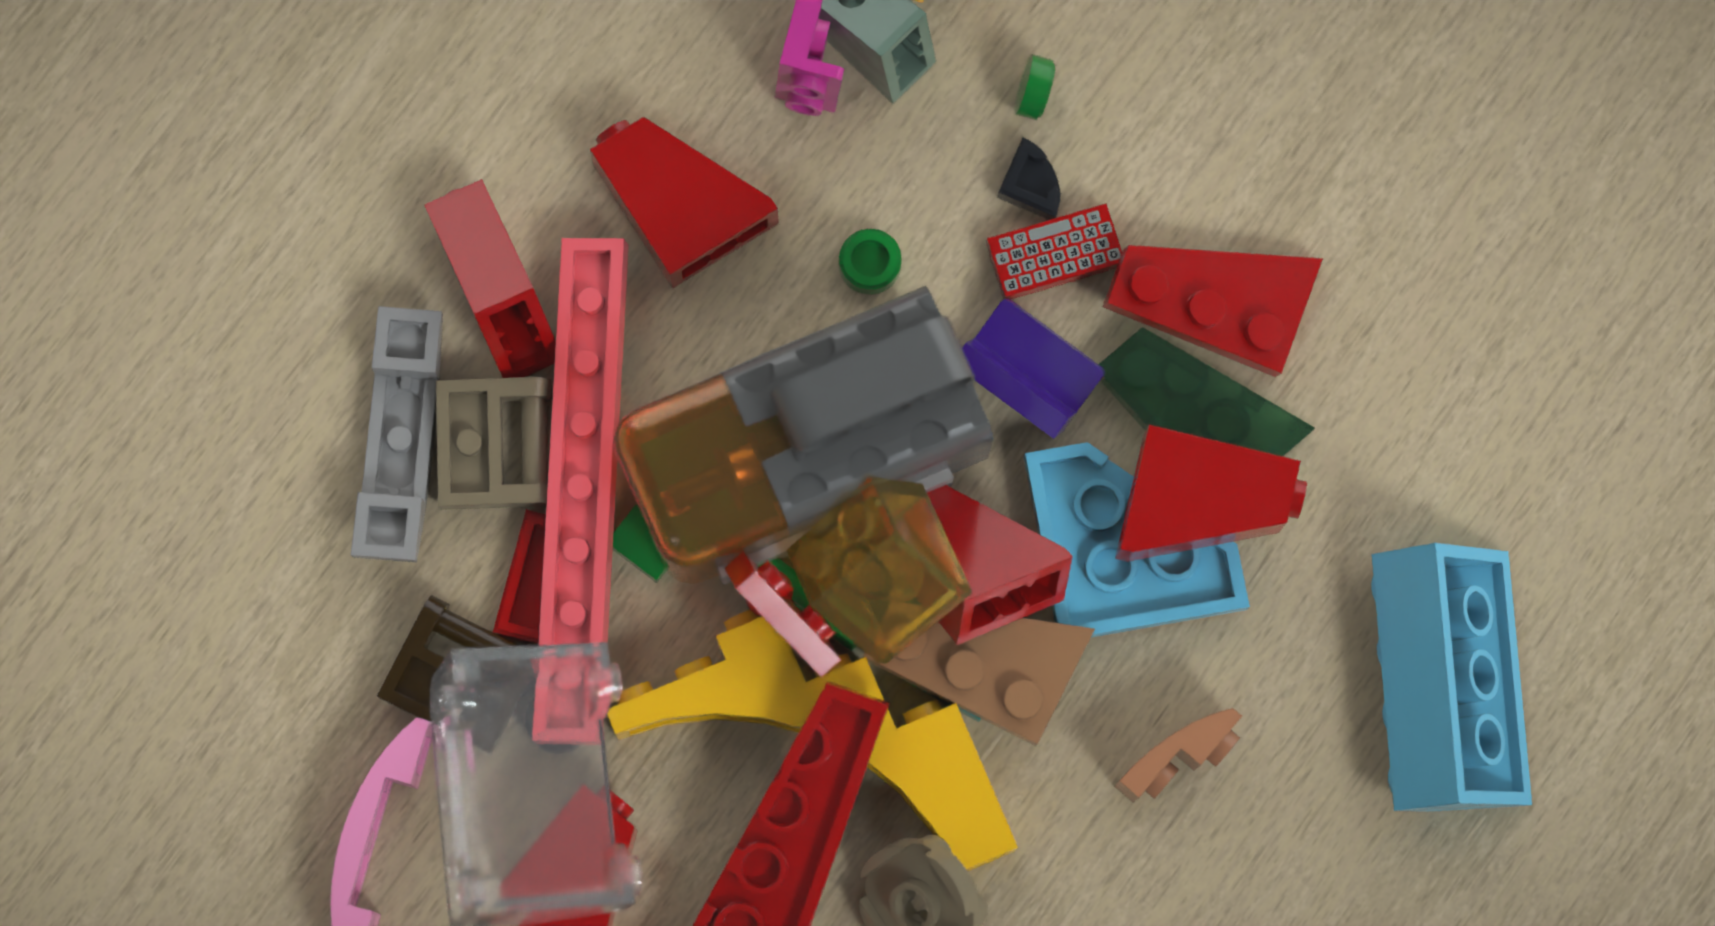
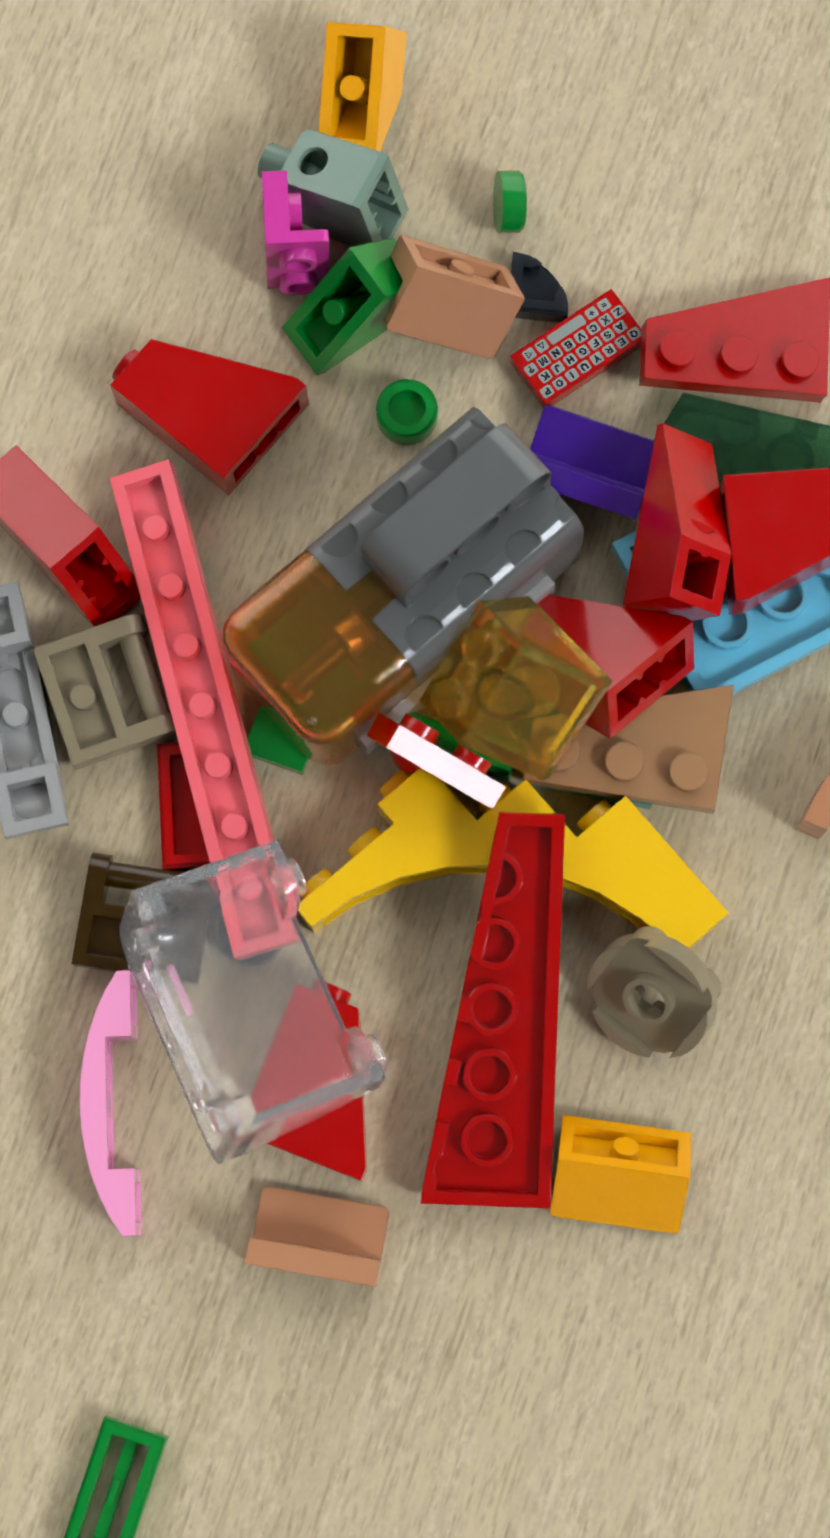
camera: 10 degrees left, 0 degrees up
(852, 141) = (346, 306): none -> green slope
(947, 165) = (452, 298): none -> nougat panel
(1091, 465) = (681, 532): none -> red slope

